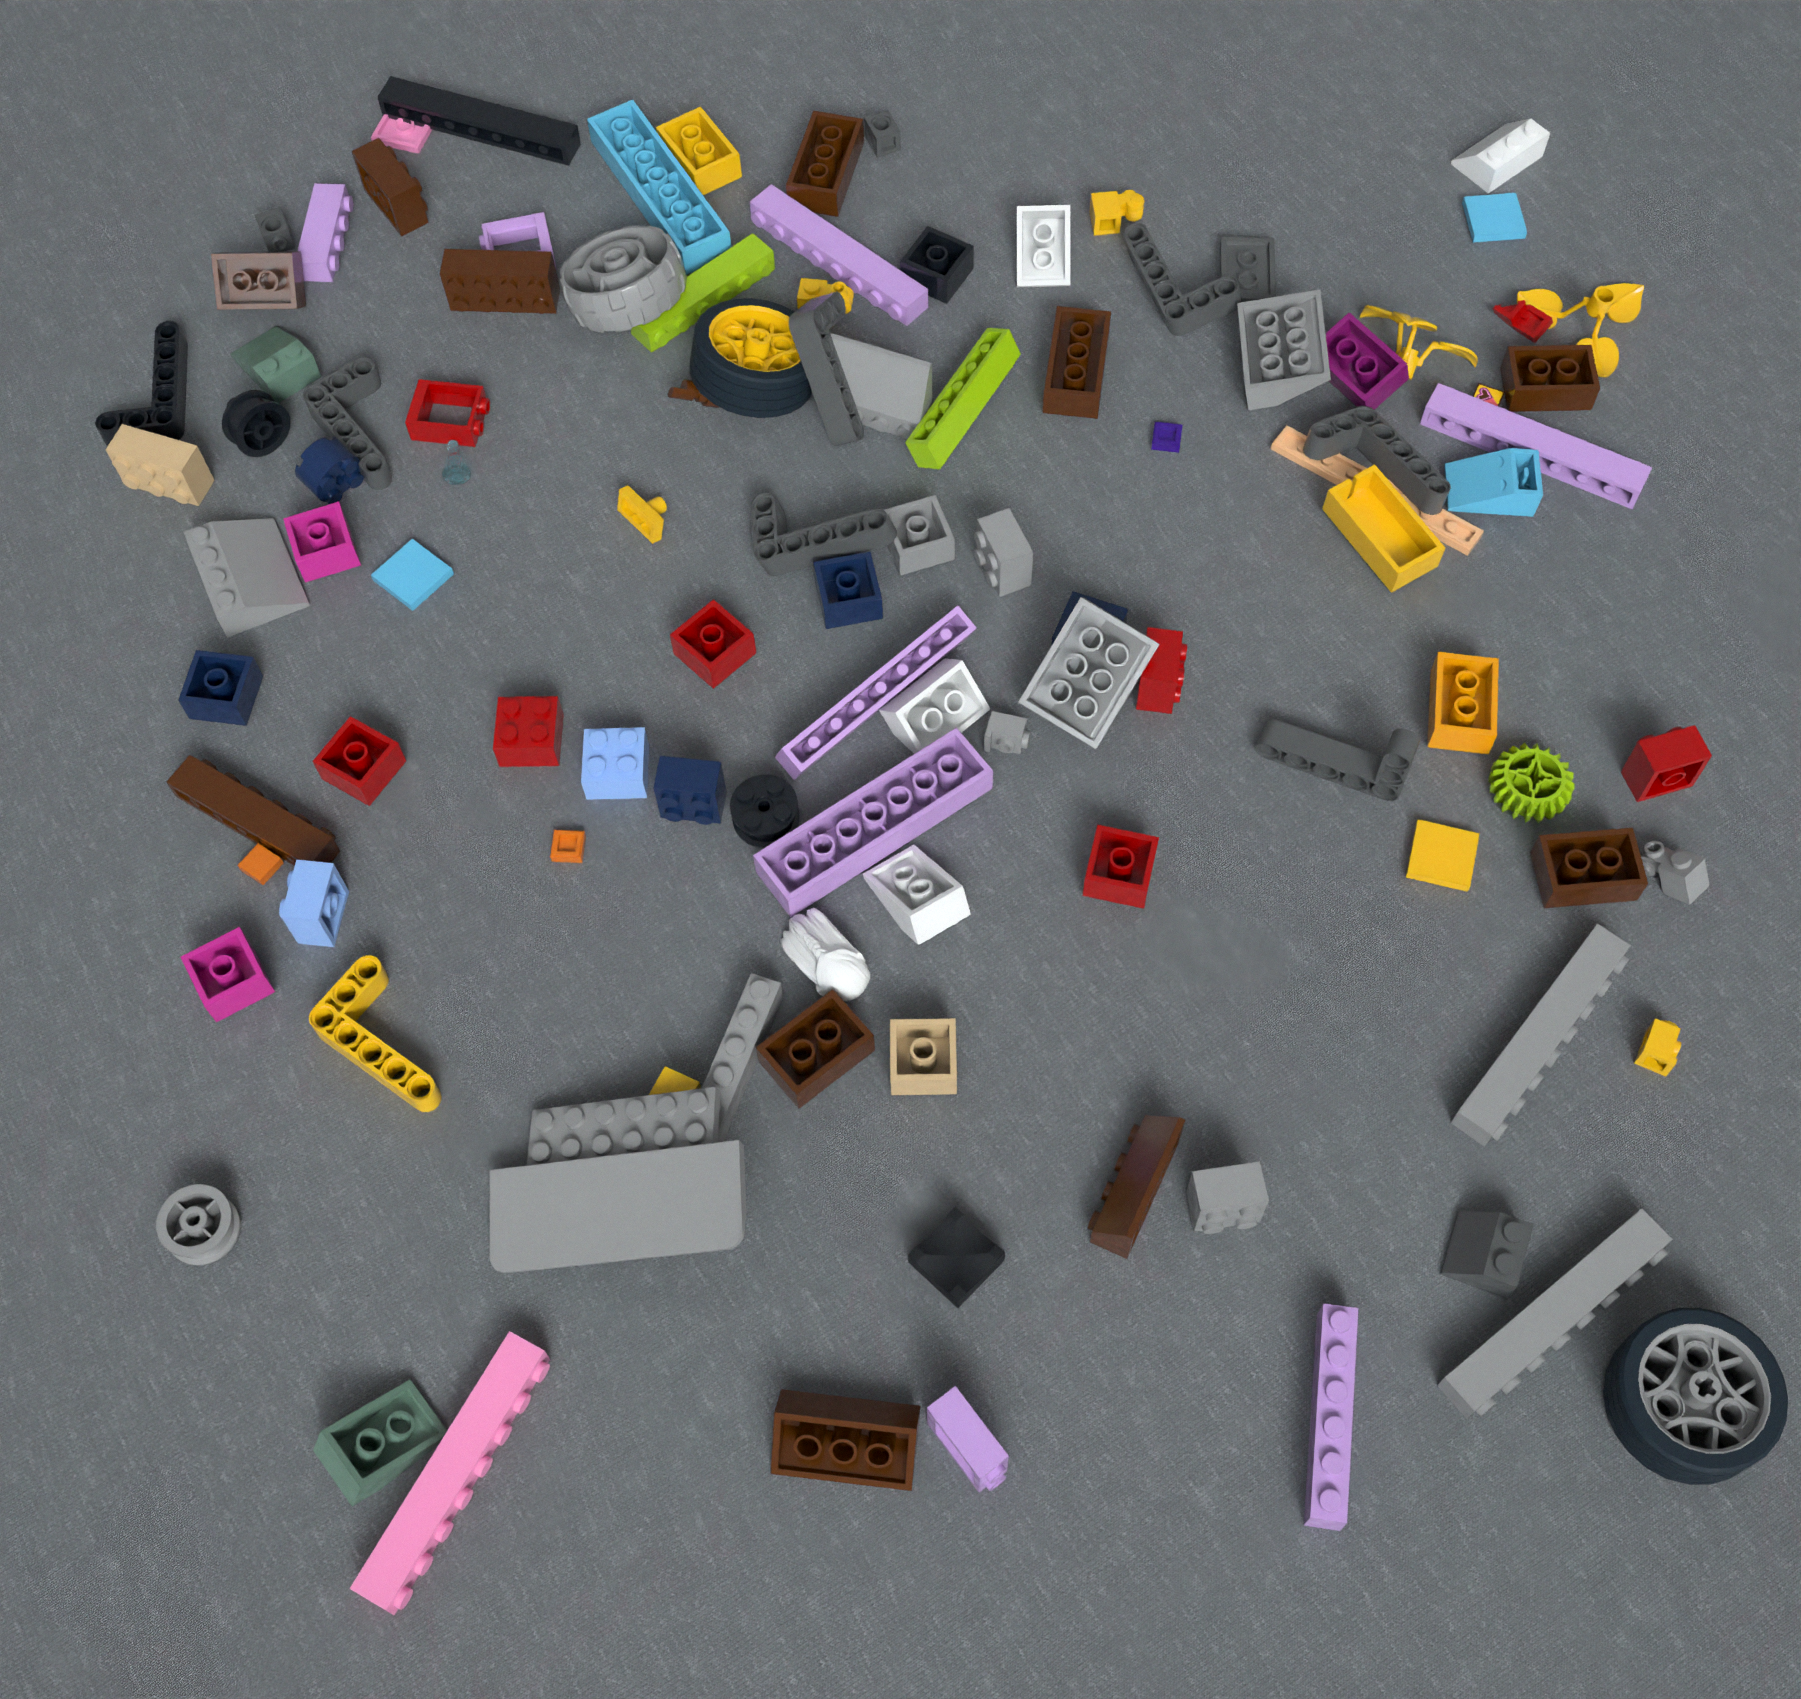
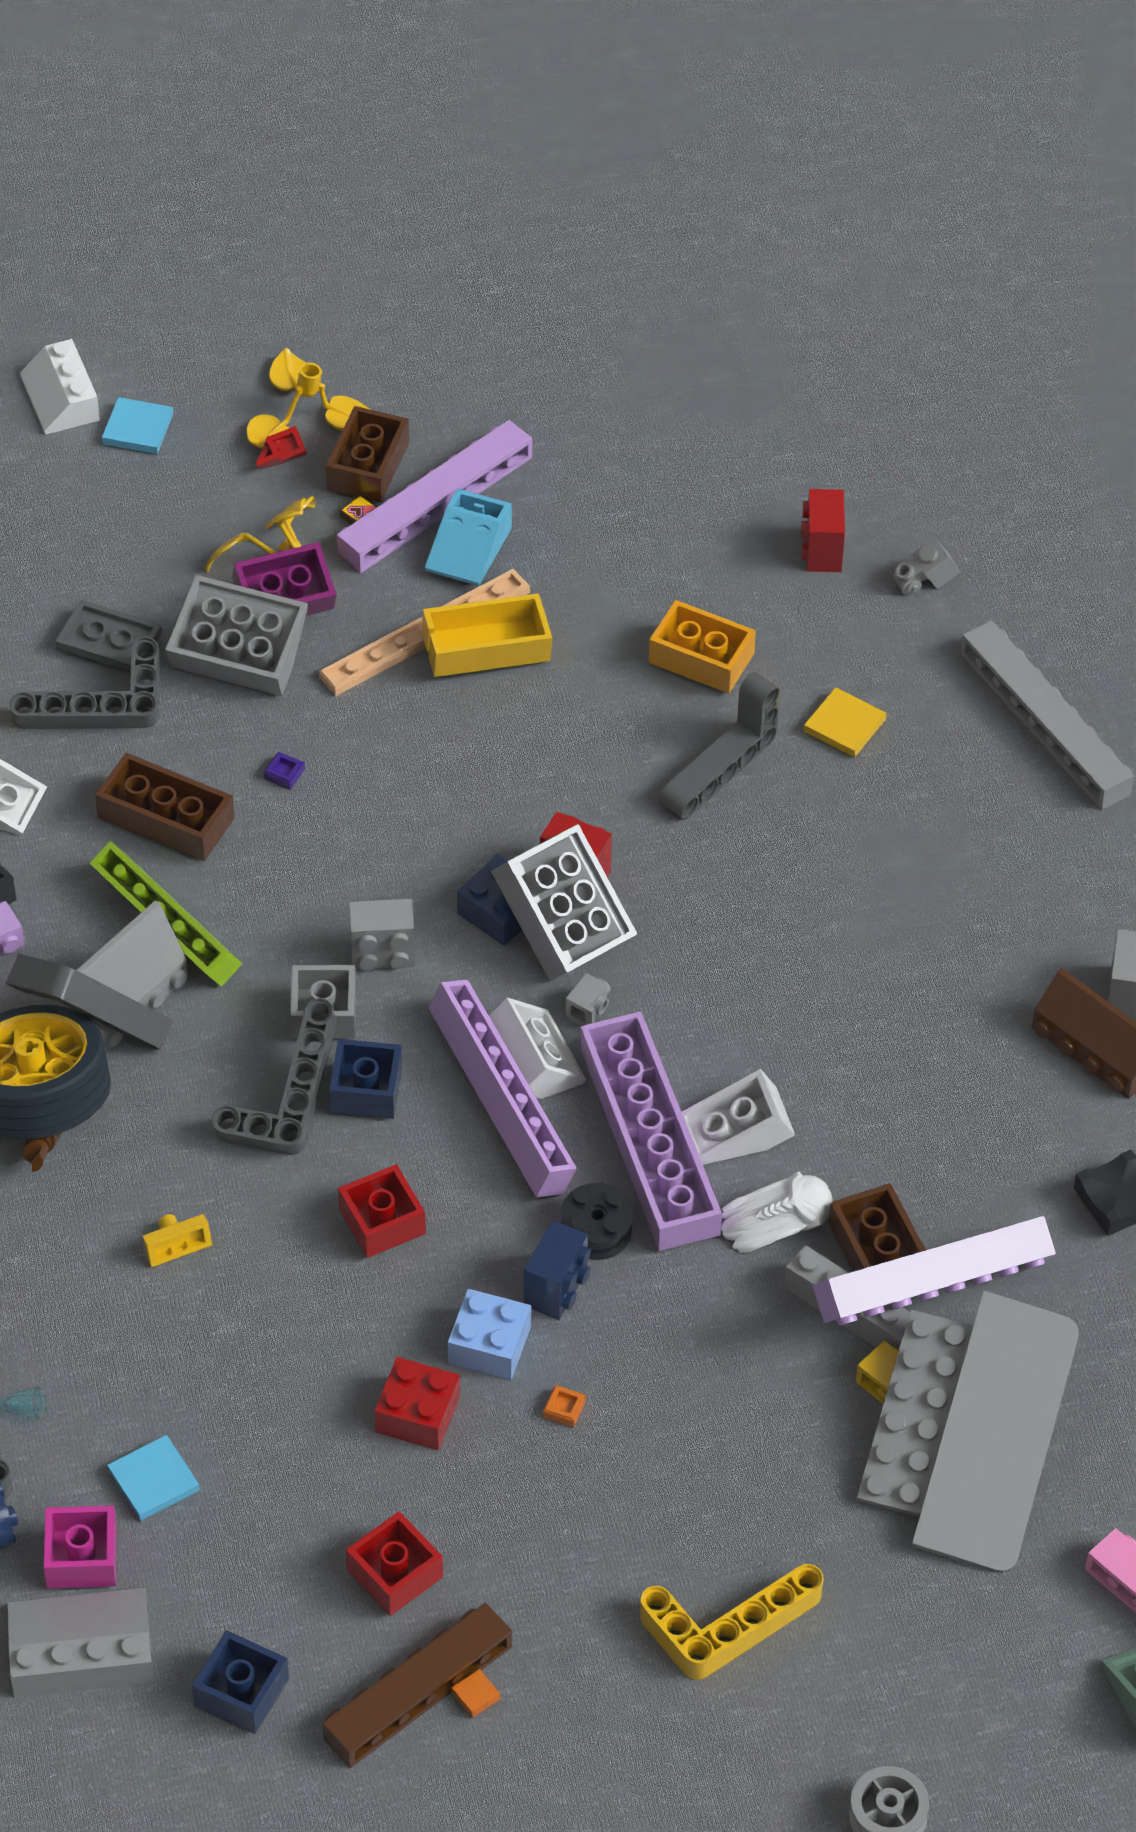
camera: 75 degrees left, 10 degrees down
(227, 974) = (612, 1733): dark pink brick -> none
(314, 903) = (560, 1633): light blue brick -> none
(777, 1099) = (932, 1270): none -> brick
(923, 1056) = (917, 1159): tan brick -> none
(1120, 866) = (774, 952): red brick -> none
(1383, 447) = (397, 602): dark grey beam -> none
(1541, 772) = (800, 632): lime gear -> none
(1588, 867) = (904, 622): reddish brown brick -> none
(1659, 1047) = (1085, 642): yellow brick -> none

